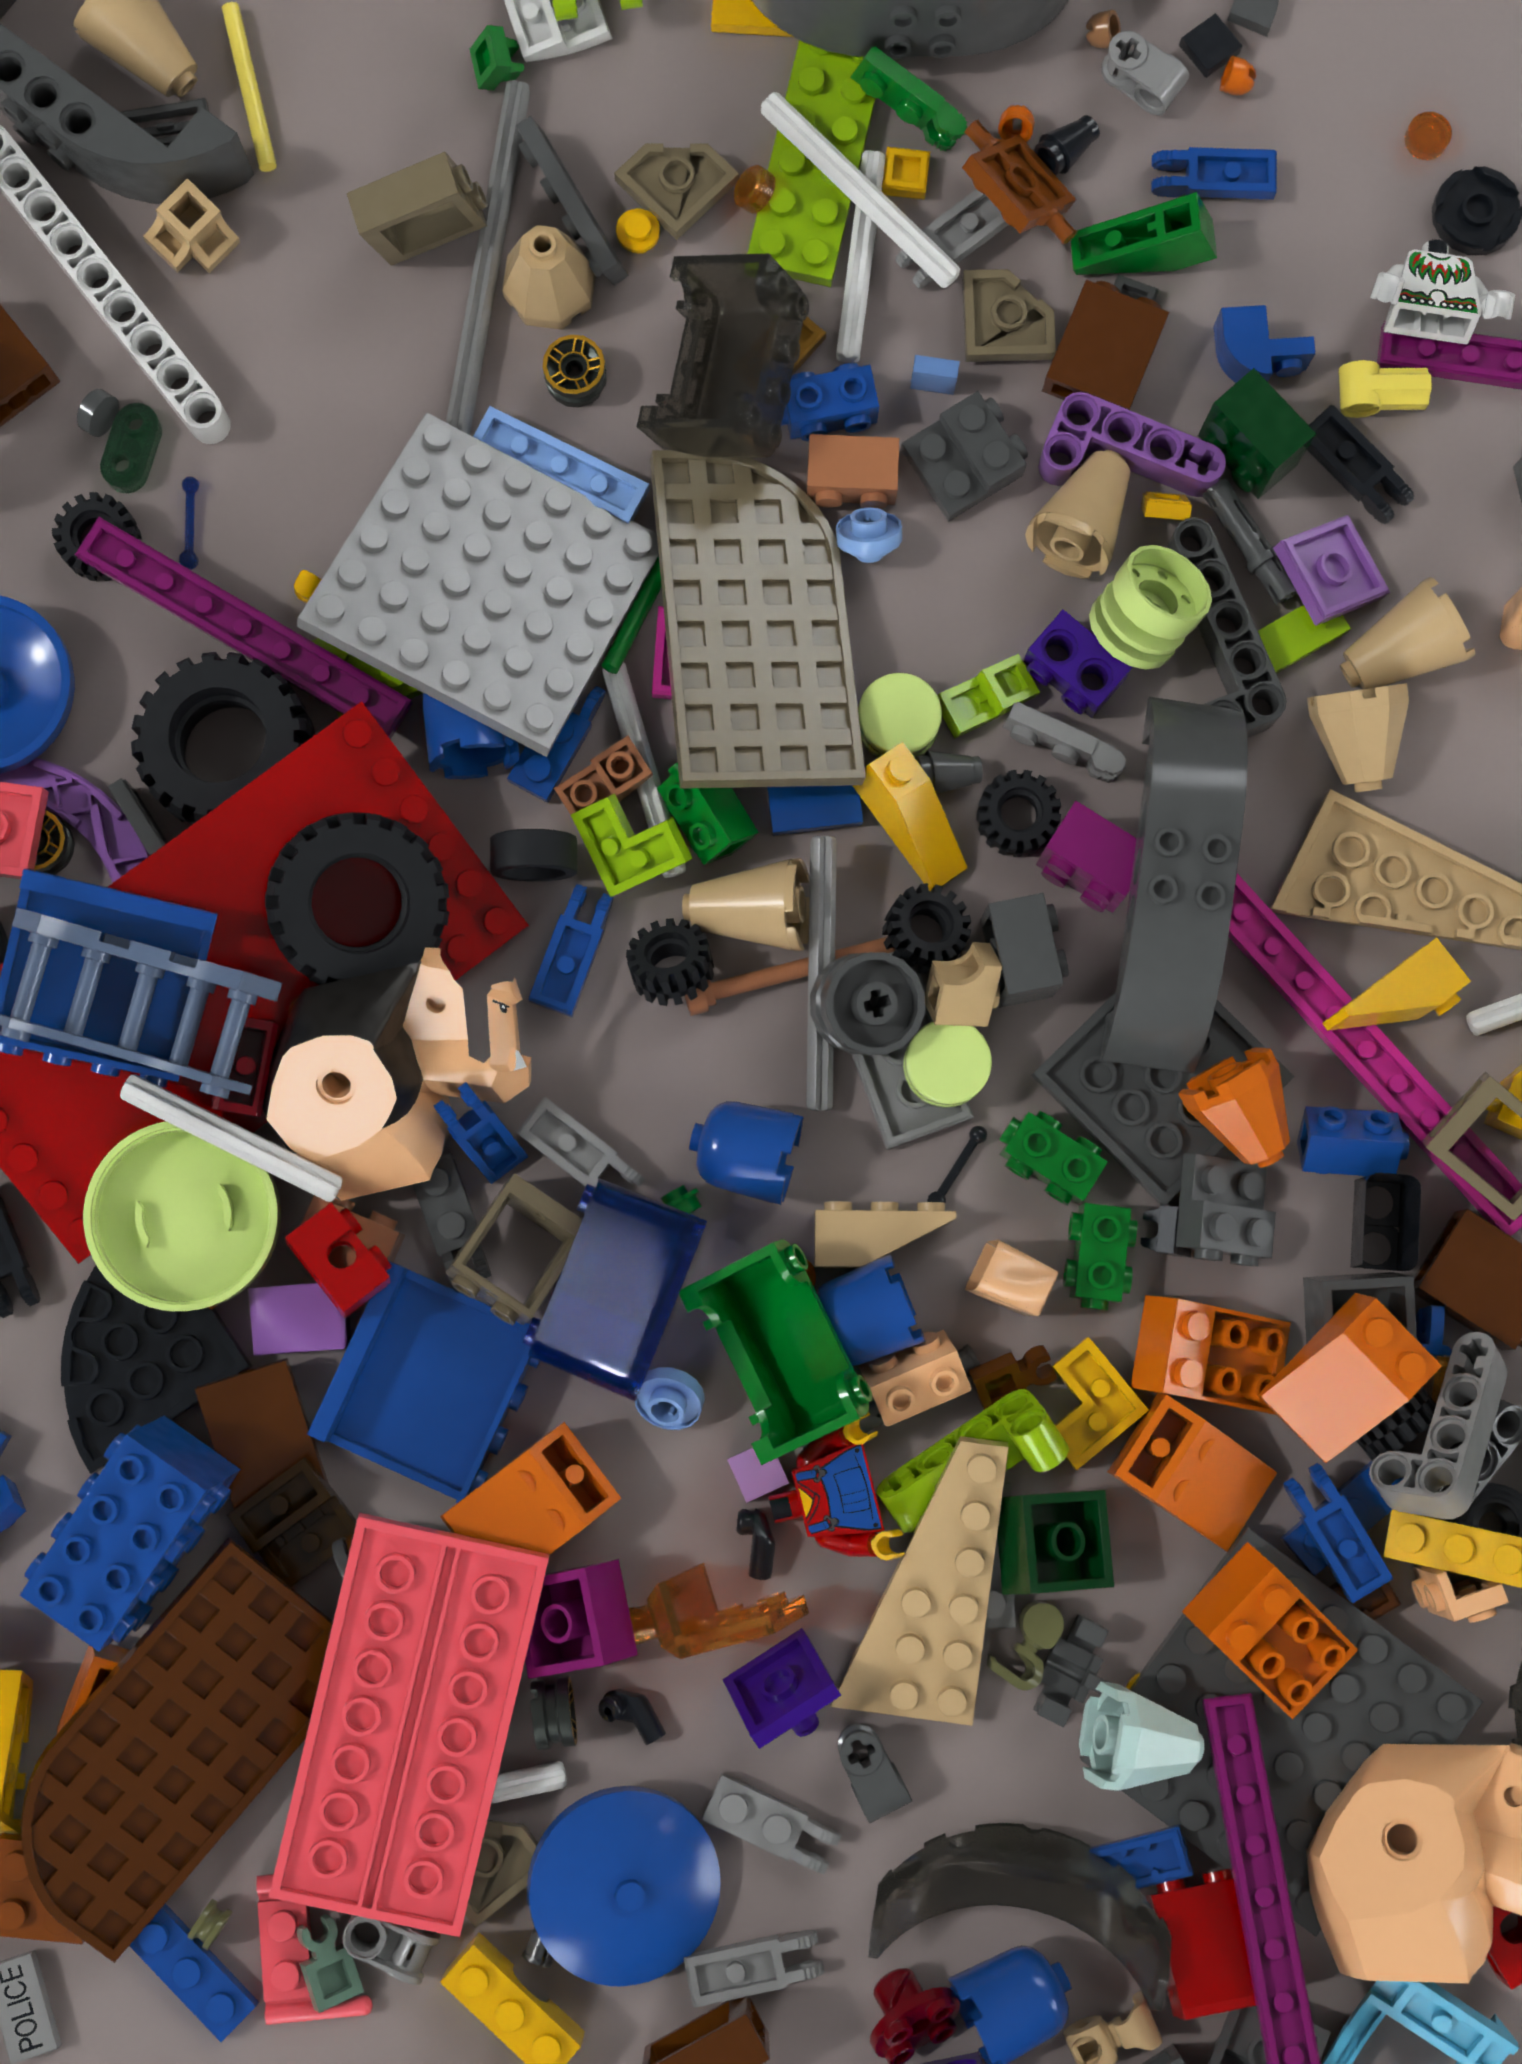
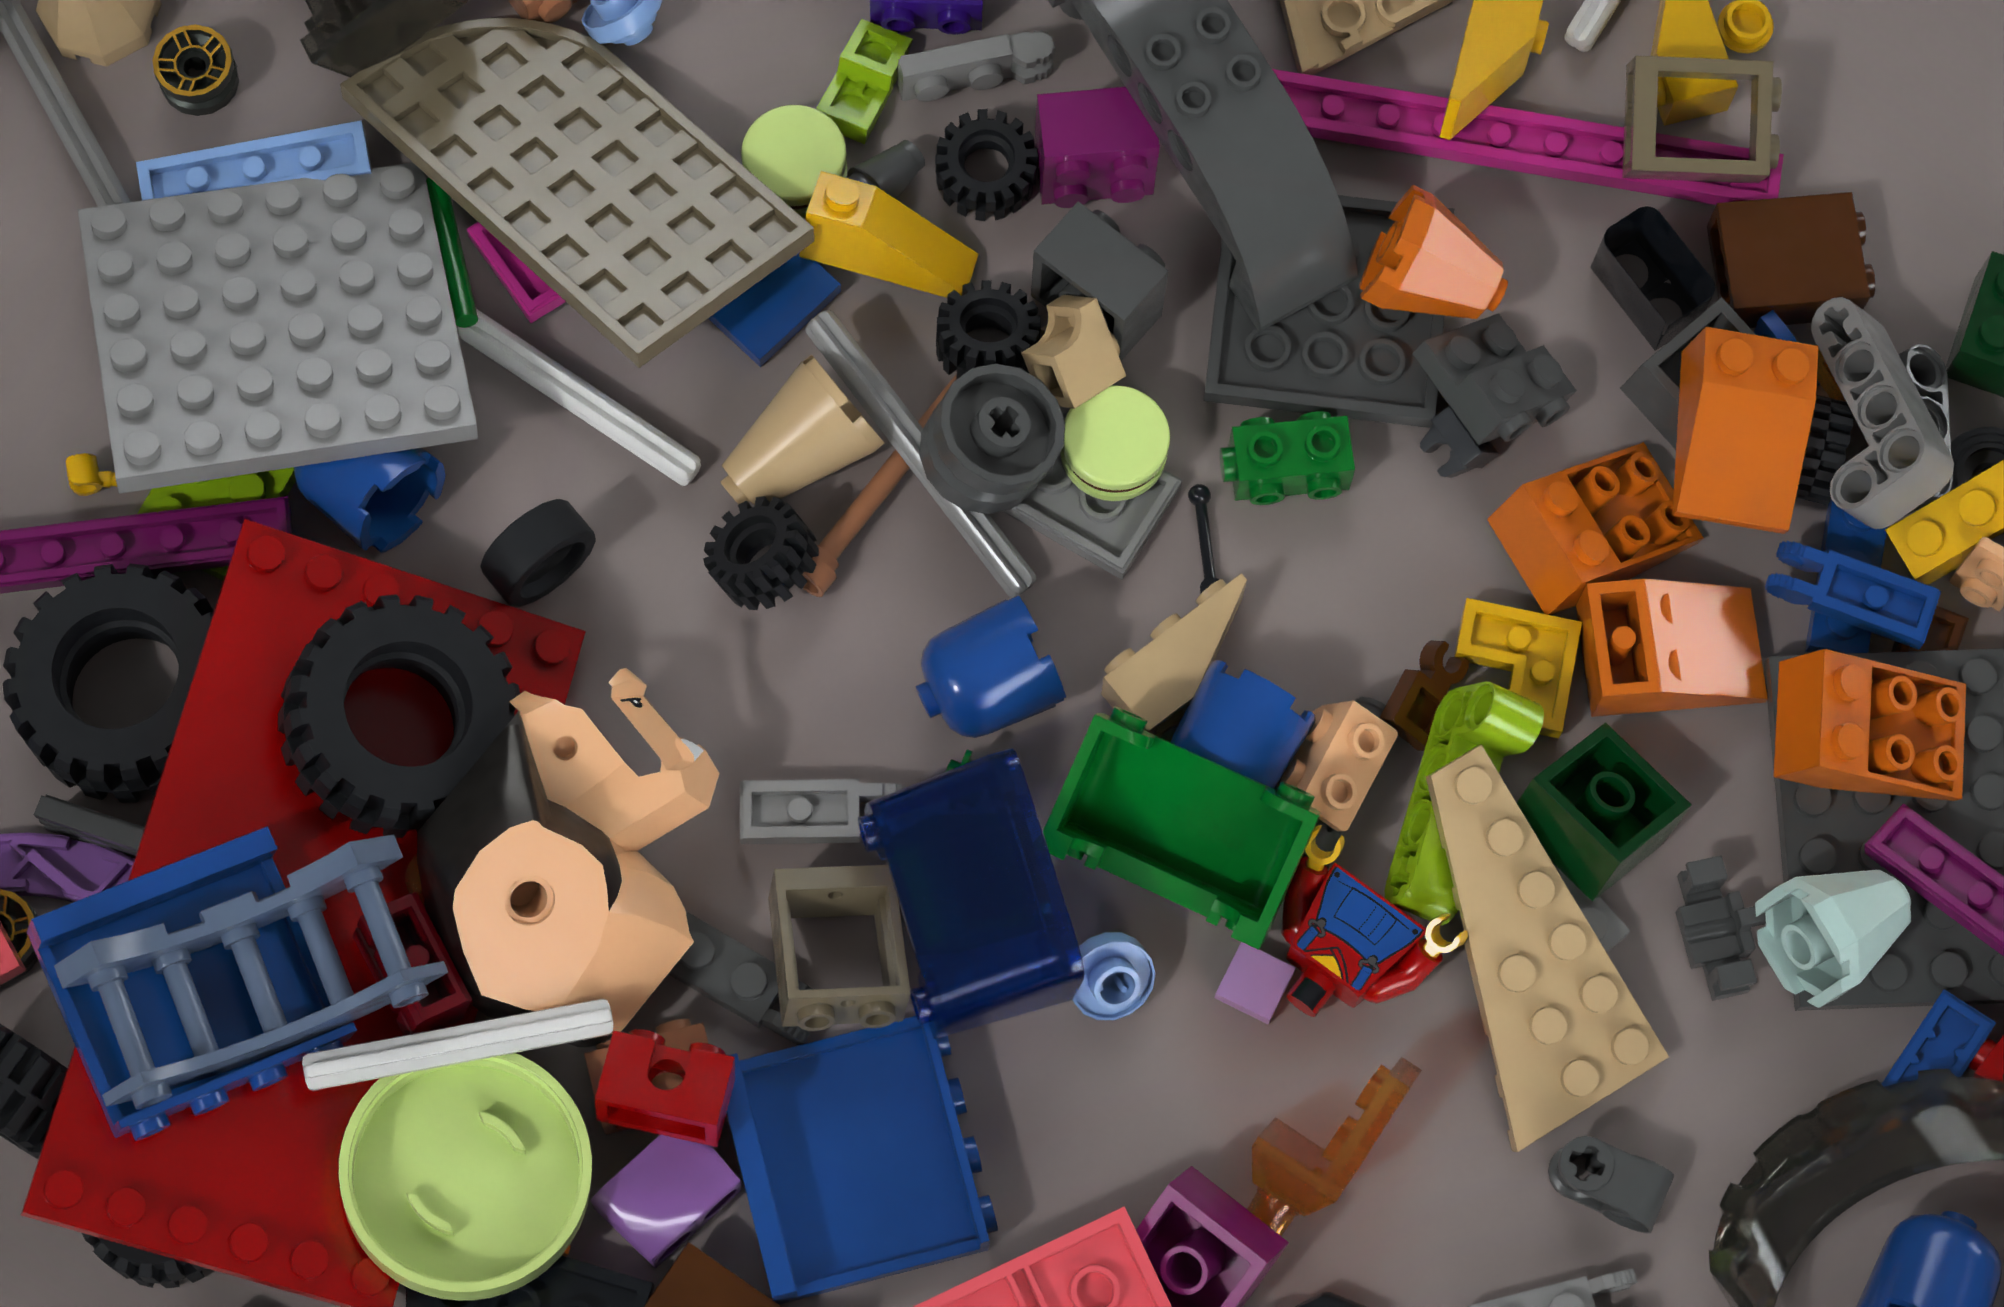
camera: 40 degrees left, 10 degrees down
(482, 1136) = (710, 858): blue hinge -> none
(536, 1497) = (1059, 1166): orange slope -> none
(541, 773) = (474, 465): blue hinge -> none
(570, 955) = (653, 629): blue hinge -> none
(613, 771) = (549, 436): nougat slope -> none
(627, 857) = (629, 489): lime plate -> none
(708, 817) = (680, 387): green brick -> none
(763, 1542) = (1315, 1043): black arm -> none
(782, 1689) = (1458, 1165): dark purple tile -> none
(1011, 1279) = (1354, 596): light nougat piece -> none
(1041, 1628) = (1653, 912): olive leg -> none
(1100, 1252) = (1412, 514): green brick -> none
(1351, 1141) = (1556, 227): blue brick -> none

